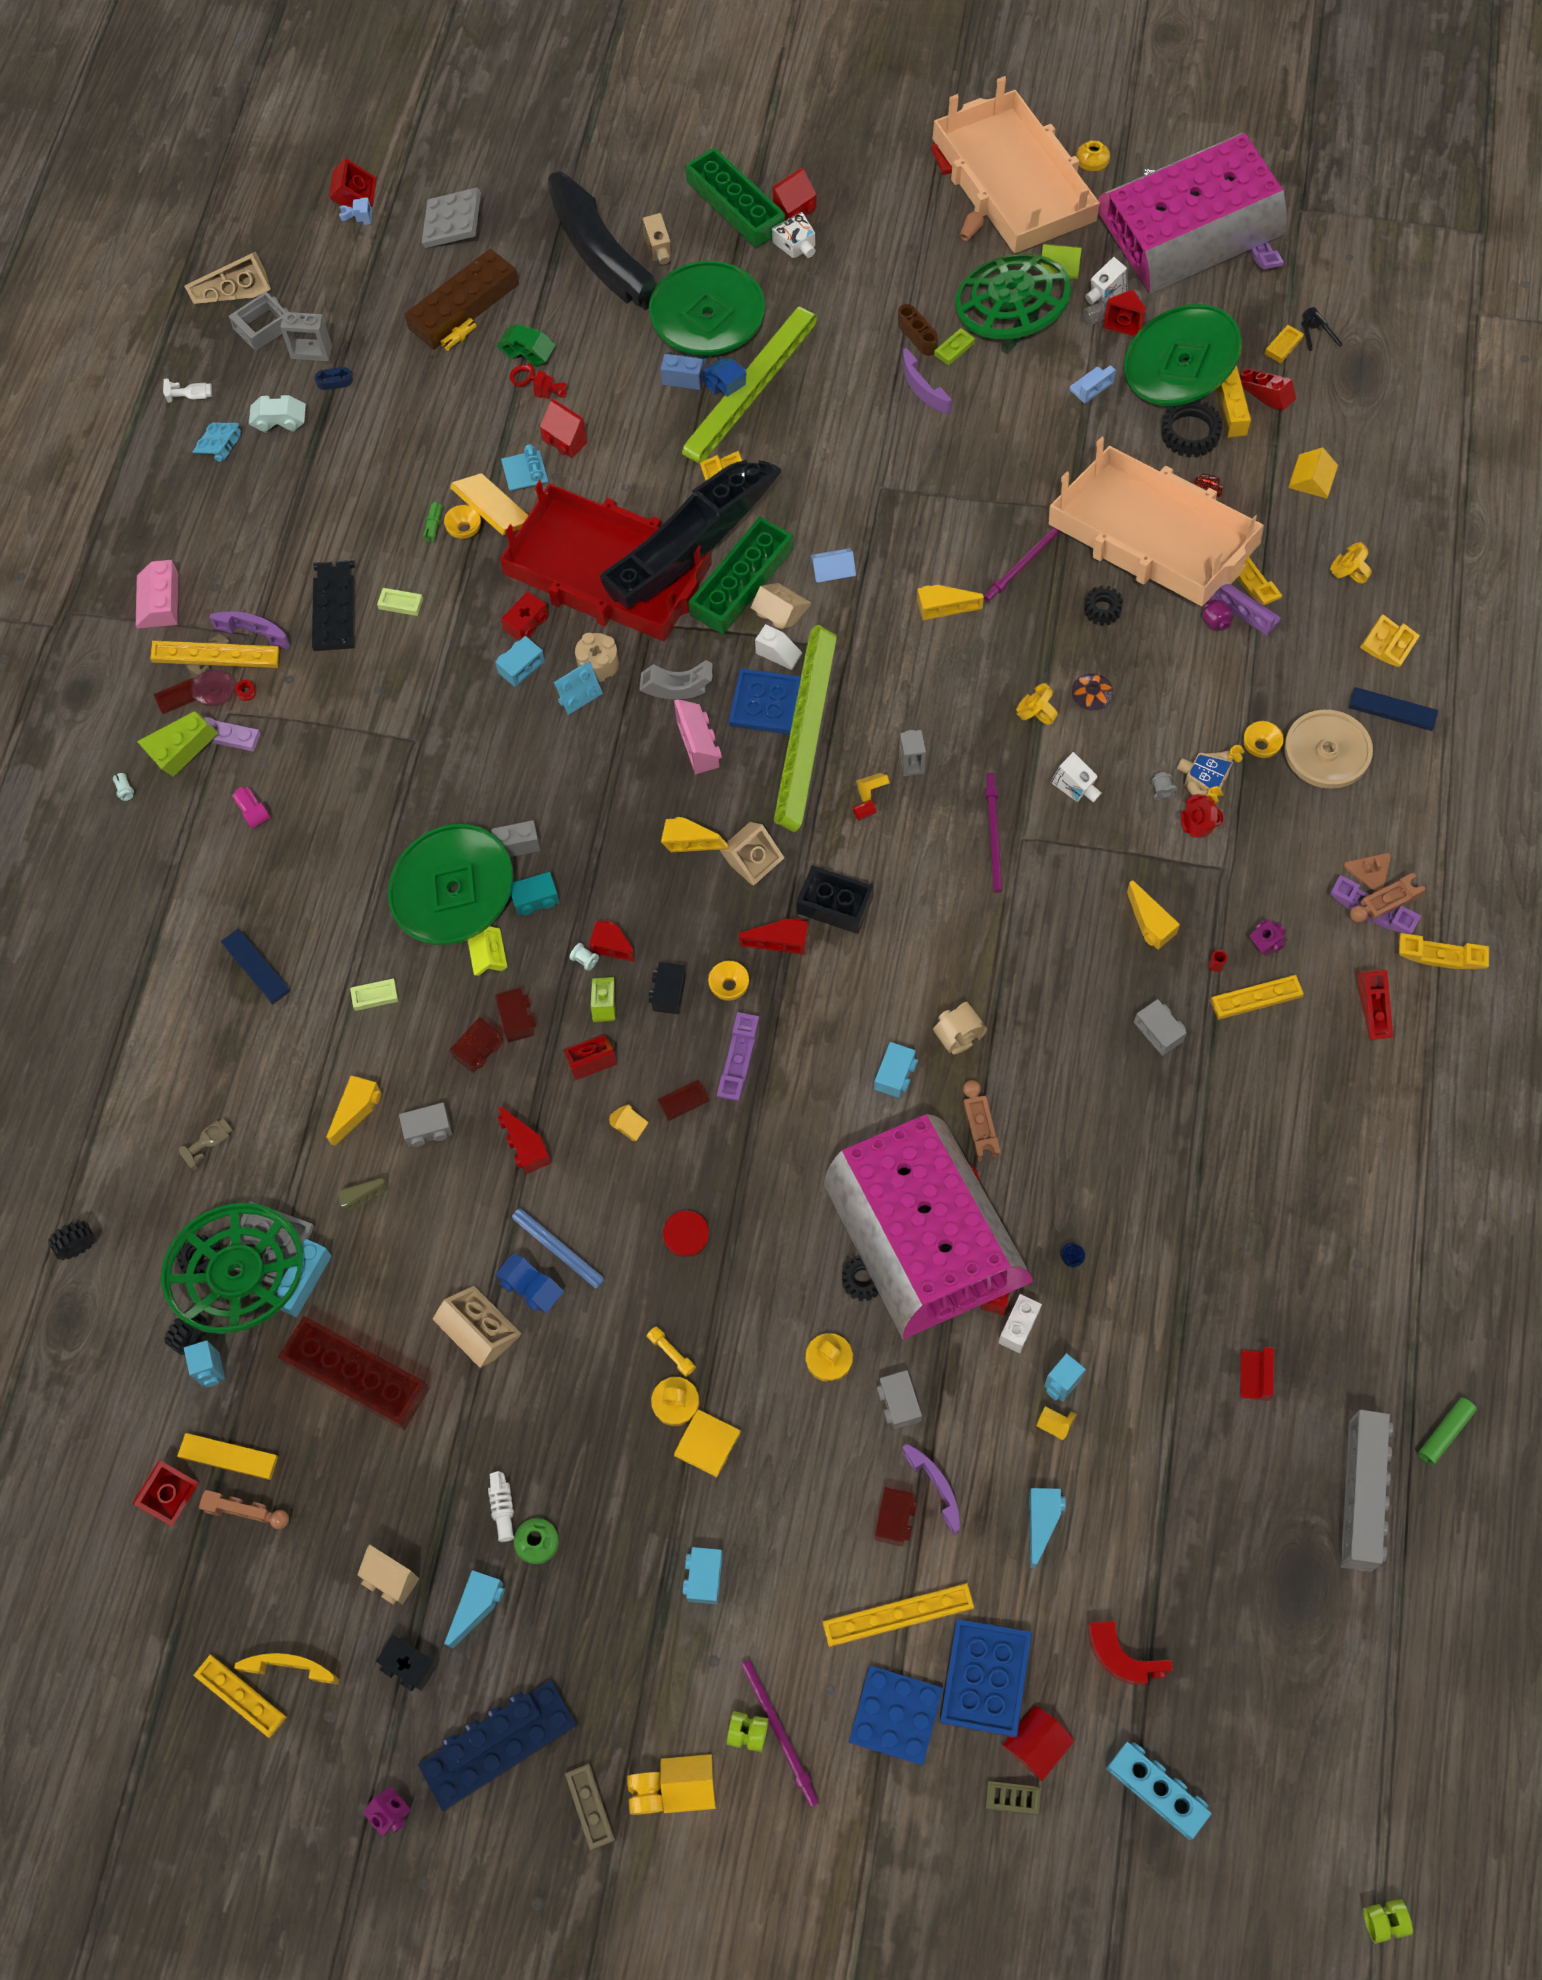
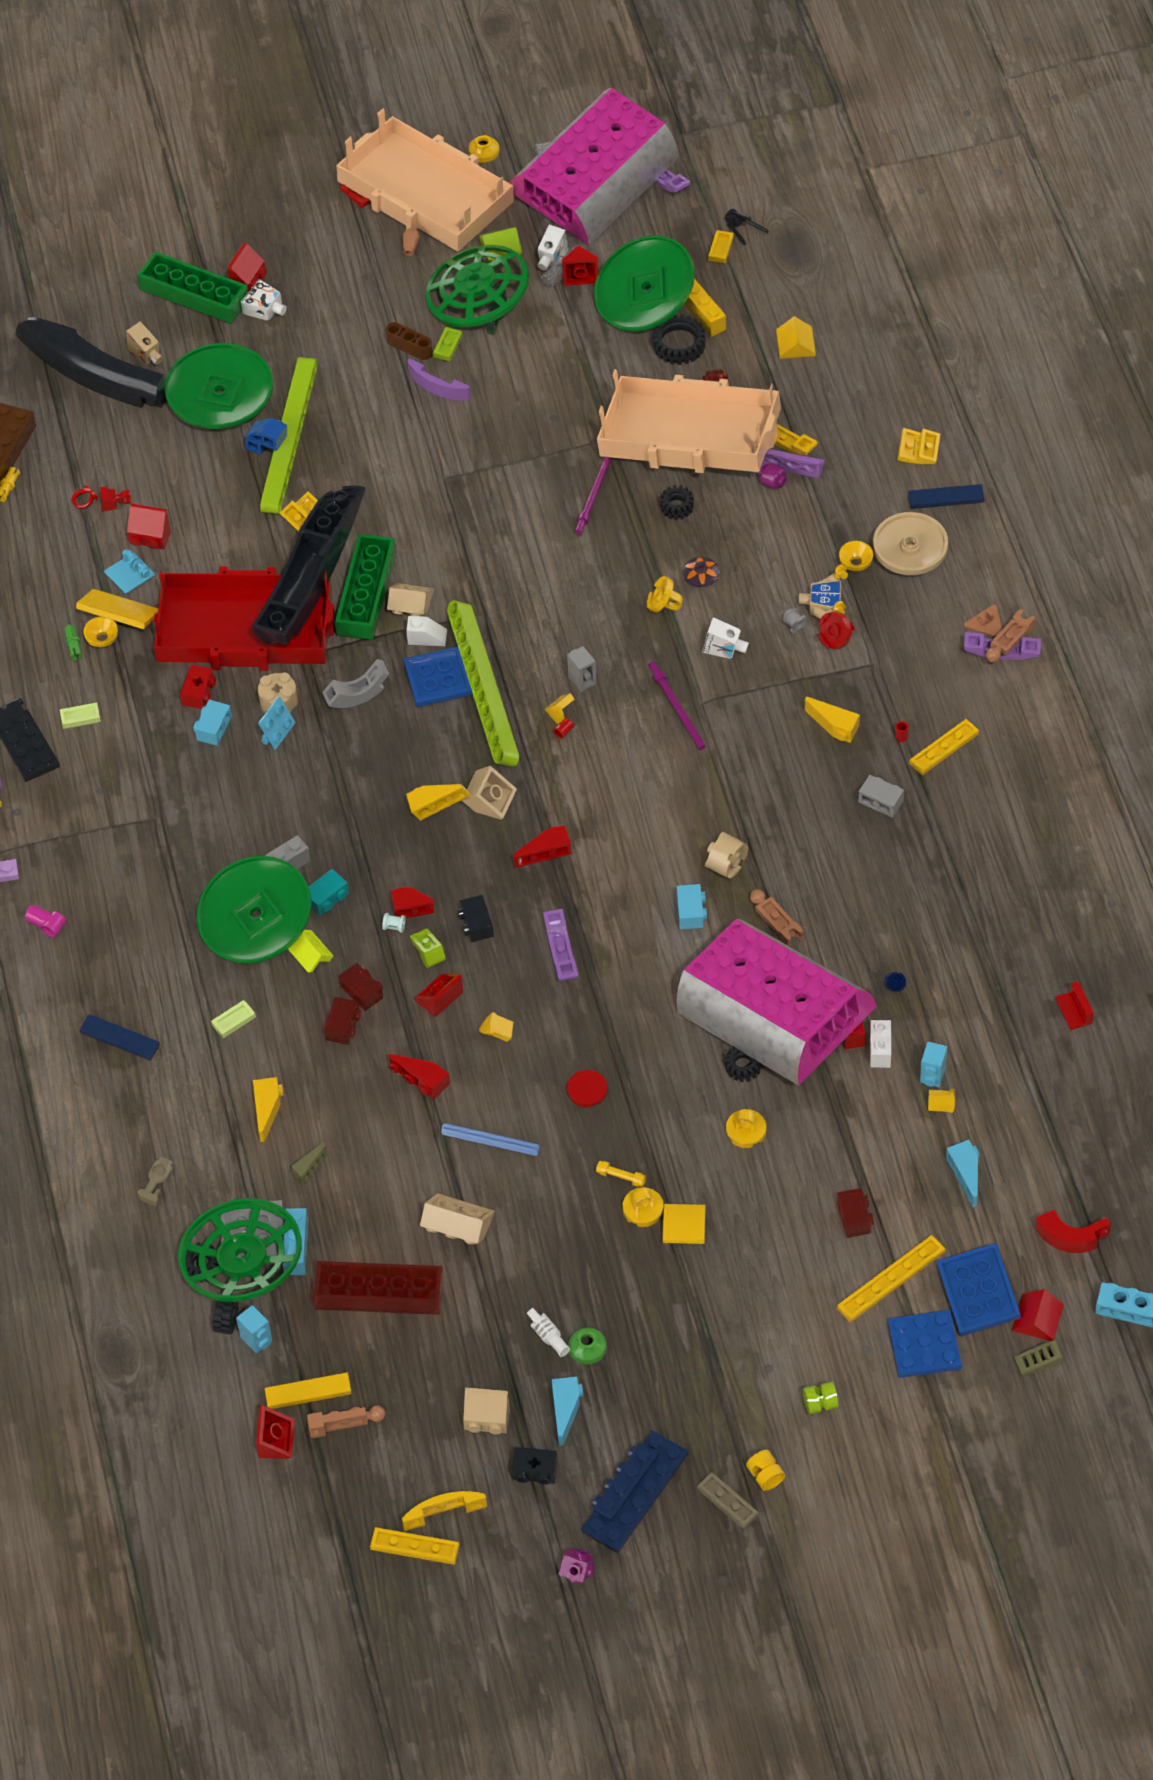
camera: 25 degrees left, 10 degrees down
(71, 1240) = (89, 1289): black tyre -> none
(425, 1125) = (333, 1094): light grey brick -> none
(524, 1280) = (482, 1172): blue brick -> none
(528, 342) = (75, 467): green brick -> none
(683, 370) = (224, 444): medium blue slope -> none
(683, 1100) = (532, 995): clear red tile -> none
(687, 1783) = (795, 1453): yellow slope -> none
(697, 736) = (396, 724): bright pink slope -> none
(703, 1575) = (731, 1312): medium azure brick -> none
(728, 971) = (522, 887): yellow piece -> none
(802, 1779) = (876, 1413): magenta bar -> none
(833, 565) = (437, 551): light blue panel -> none
(835, 899) = (577, 801): black brick -> none
(899, 1400) = (816, 1133): light grey brick -> none
(918, 1461) = (852, 1167): medium lavender slope -> none
(944, 601) = (546, 545): yellow slope -> none
(1093, 383) = (579, 332): light blue panel -> none
(1264, 931) = (932, 698): magenta brick -> none
(1268, 388) = (727, 286): red slope -> none
(1352, 563) = (860, 397): yellow tile -> none
(1375, 1002) = (1036, 714): red slope -> none
(1443, 955) = (1071, 662): yellow slope -> none

